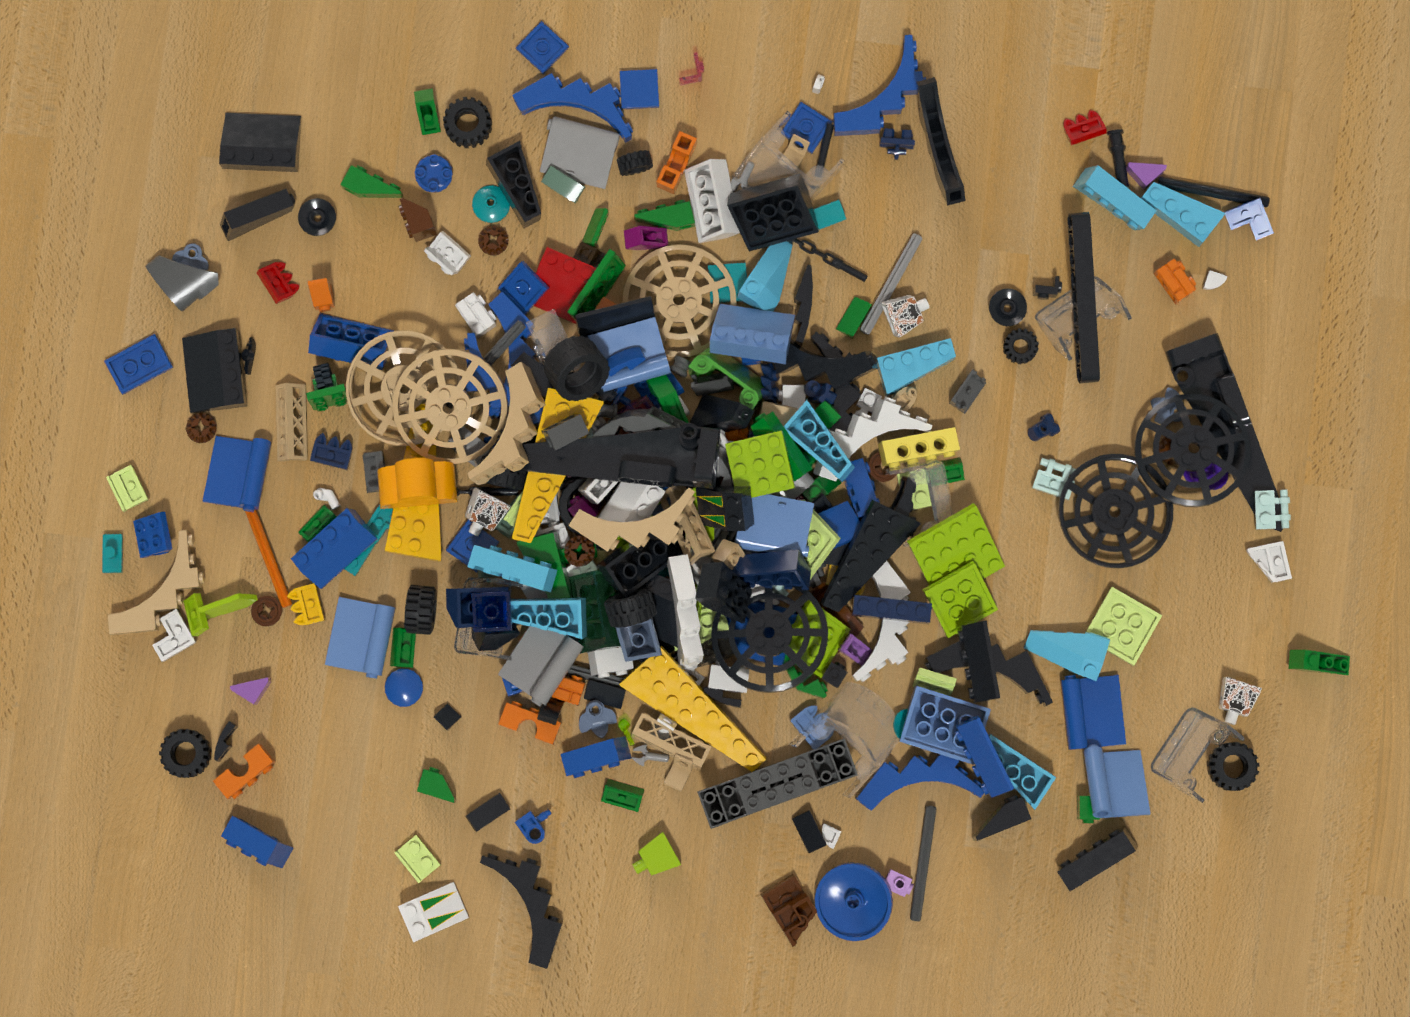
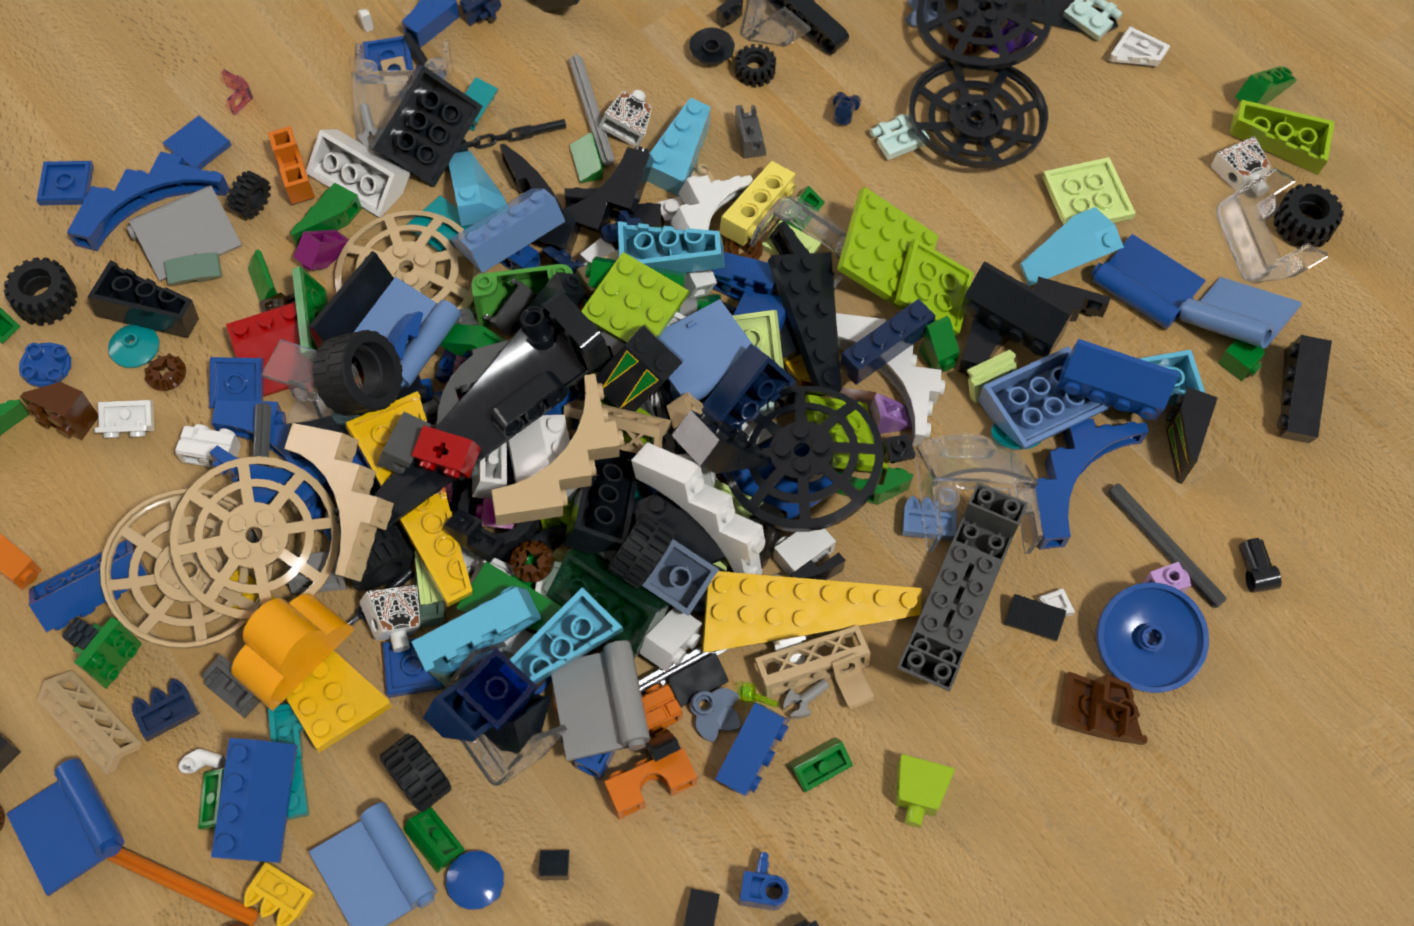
camera: 45 degrees left, 20 degrees down
(558, 513) = (469, 533): none -> black slope
(587, 466) = (460, 452): none -> red brick
(923, 638) = (939, 345): none -> green slope
(953, 926) = (1260, 572): none -> black piece
(1287, 708) = (1285, 133): none -> lime wedge

